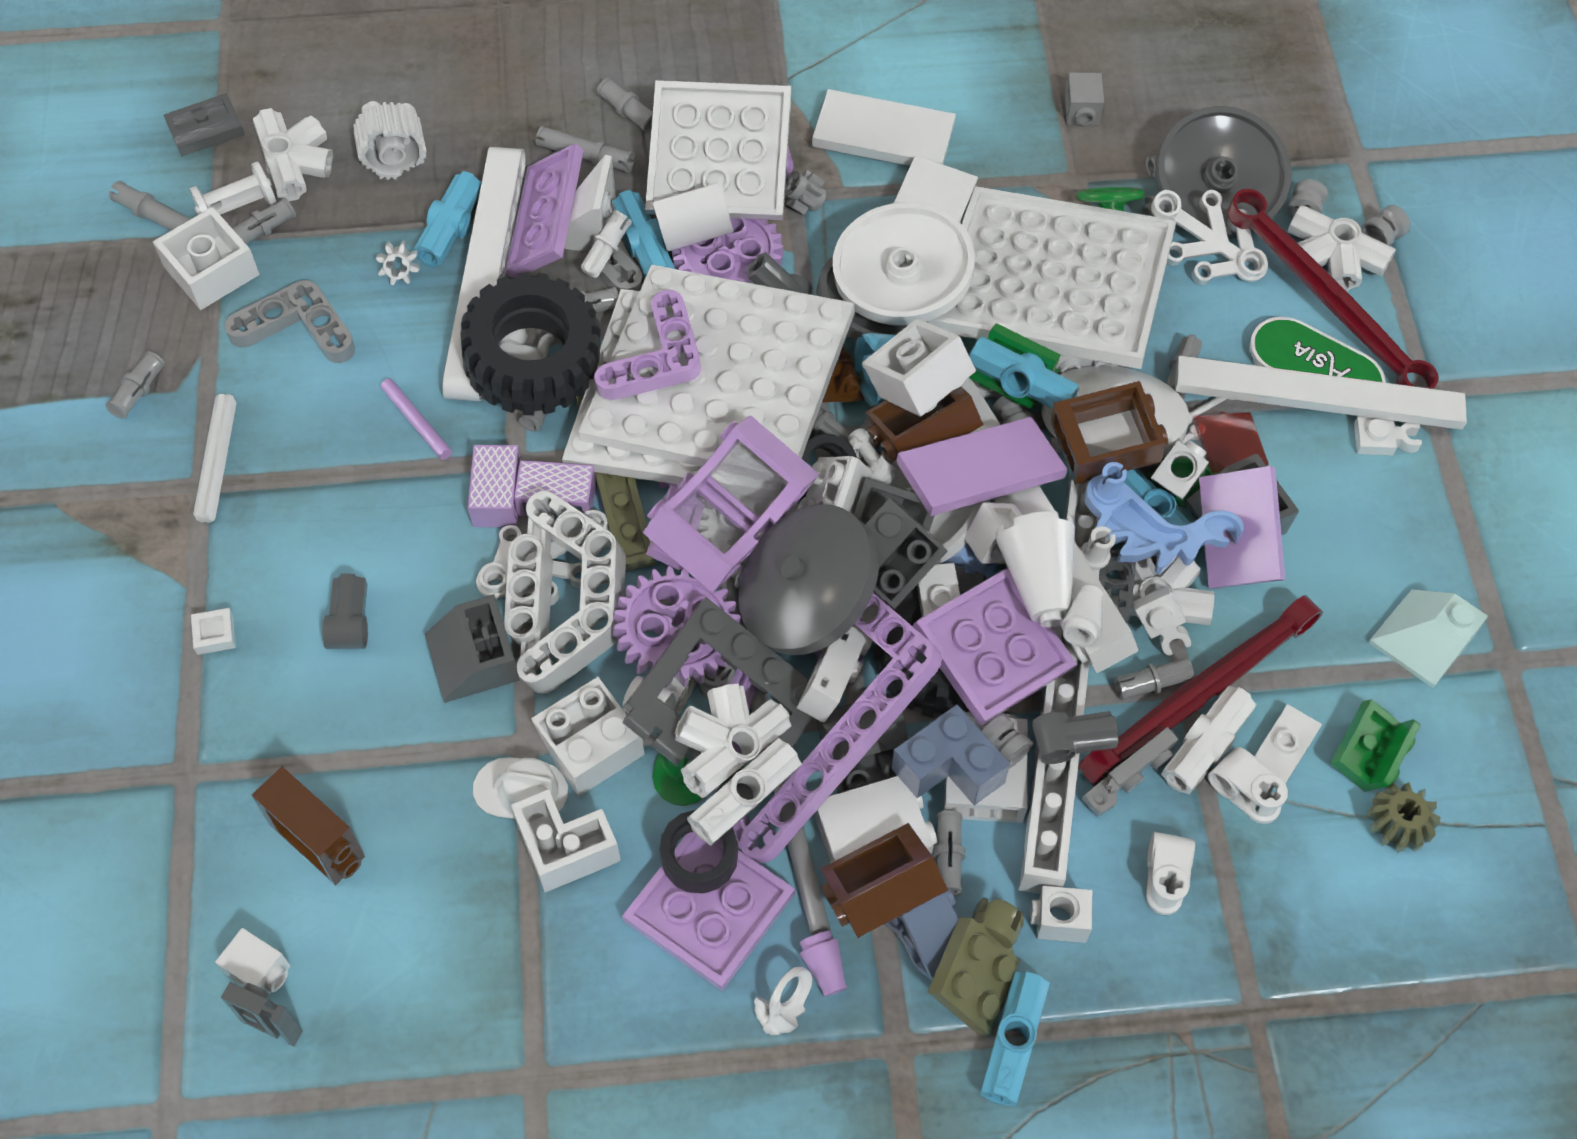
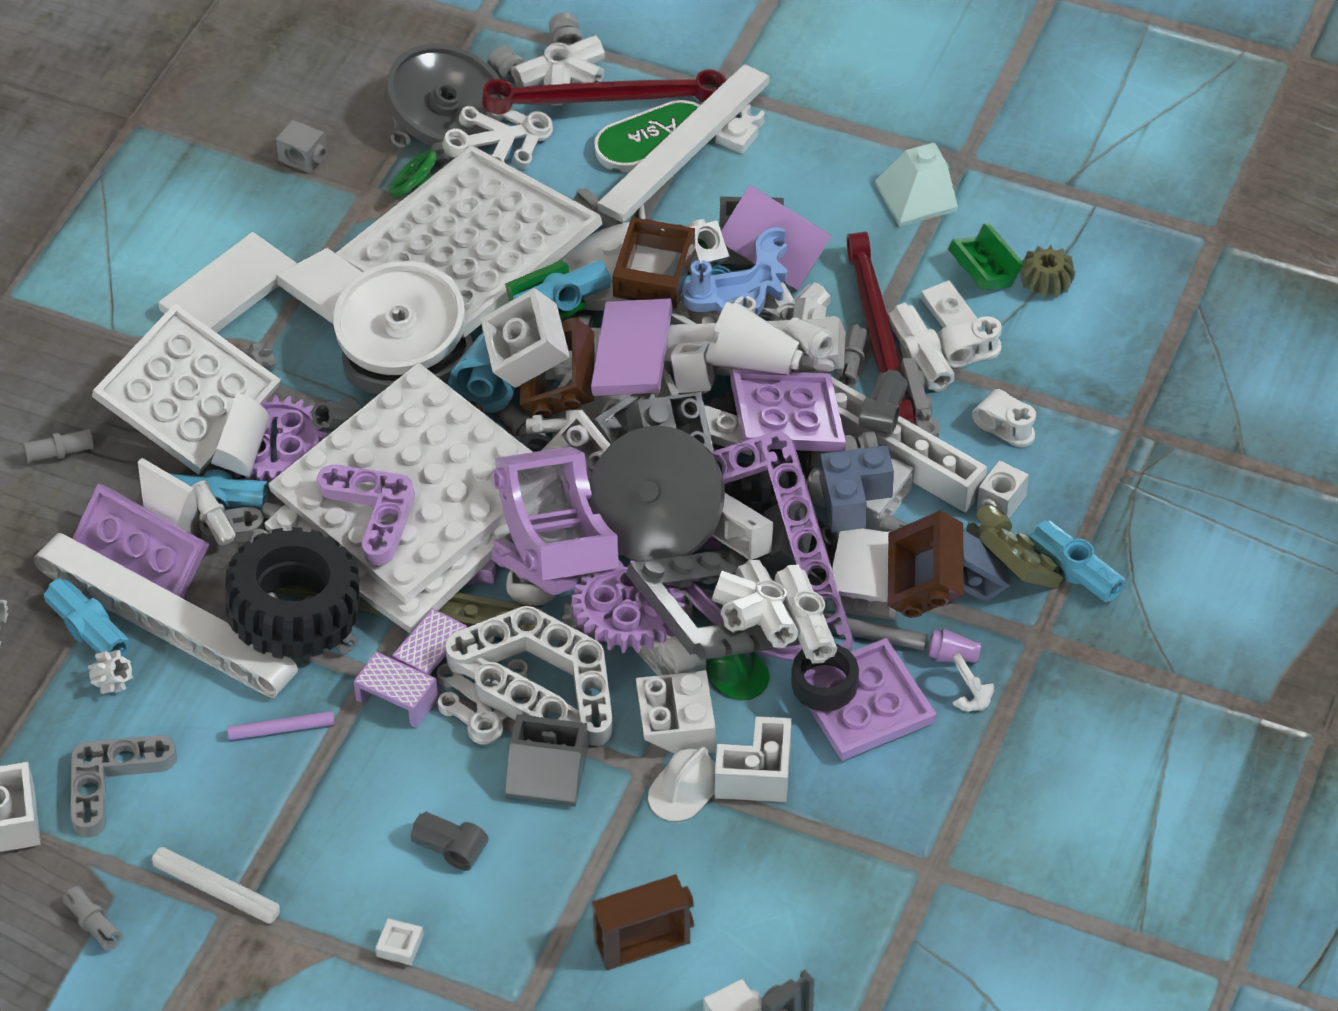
camera: 60 degrees left, 10 degrees down
(592, 152) = (81, 496): light grey pin -> none
(1228, 439) = (683, 211): clear red piece -> none

